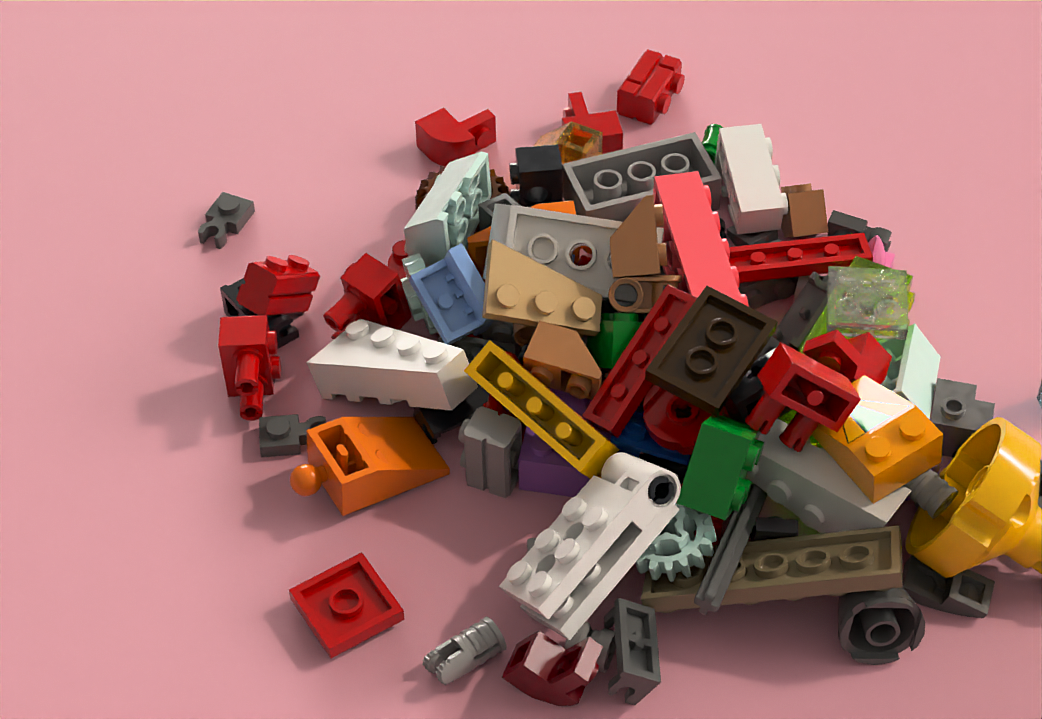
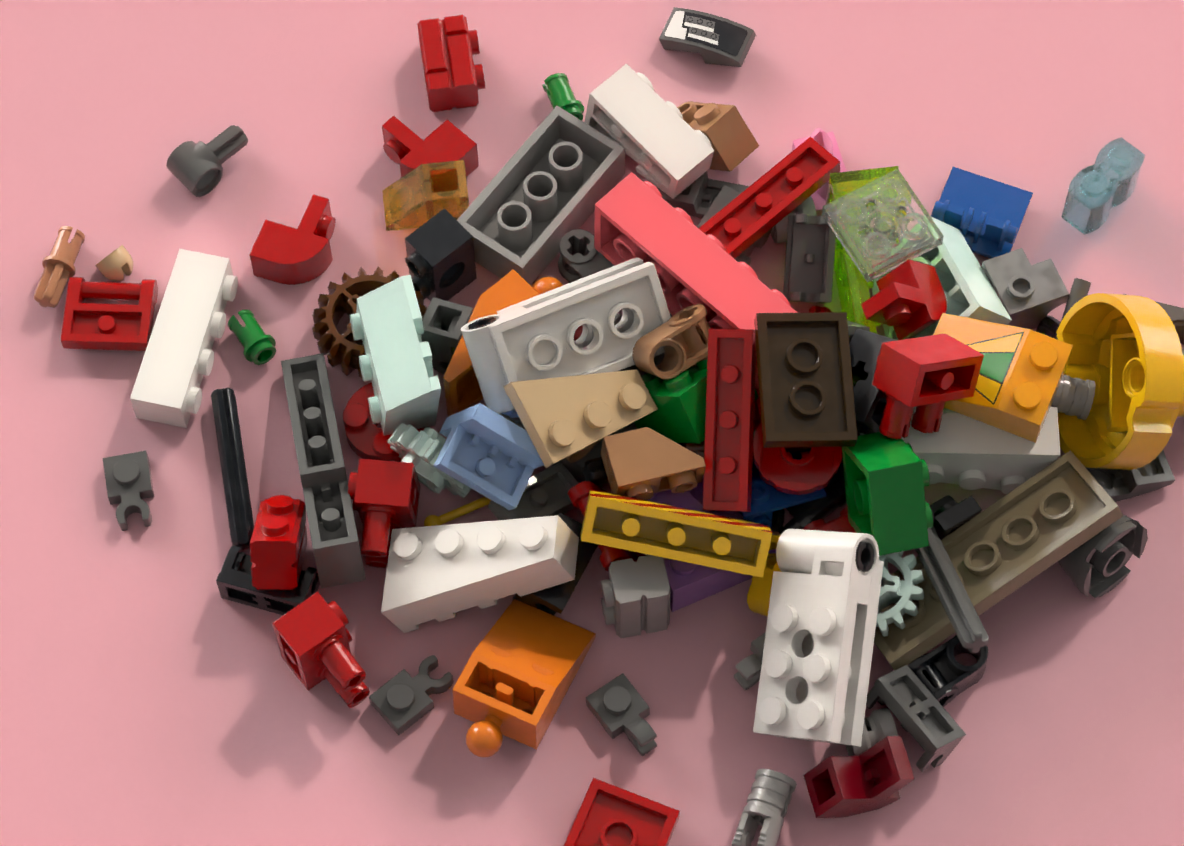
camera: 35 degrees left, 15 degrees up
(296, 78) = (58, 267): none -> nougat axle
(299, 125) = (108, 325): none -> red plate
(310, 225) = (233, 467): none -> black axle
(320, 286) = (322, 471): none -> dark grey brick
(332, 92) = (116, 264): none -> tan hinge
(333, 151) = (184, 338): none -> white brick
(378, 180) = (256, 344): none -> green pin
(423, 527) = (623, 710): none -> dark grey plate
(434, 66) = (199, 163): none -> dark grey axle
(635, 242) = (643, 298): medium nougat slope -> none
(687, 640) = (944, 675): none -> black piece
(843, 224) = (777, 131): dark grey plate -> none
(851, 157) = (712, 36): none -> slope
(972, 357) = (983, 211): none -> blue hinge

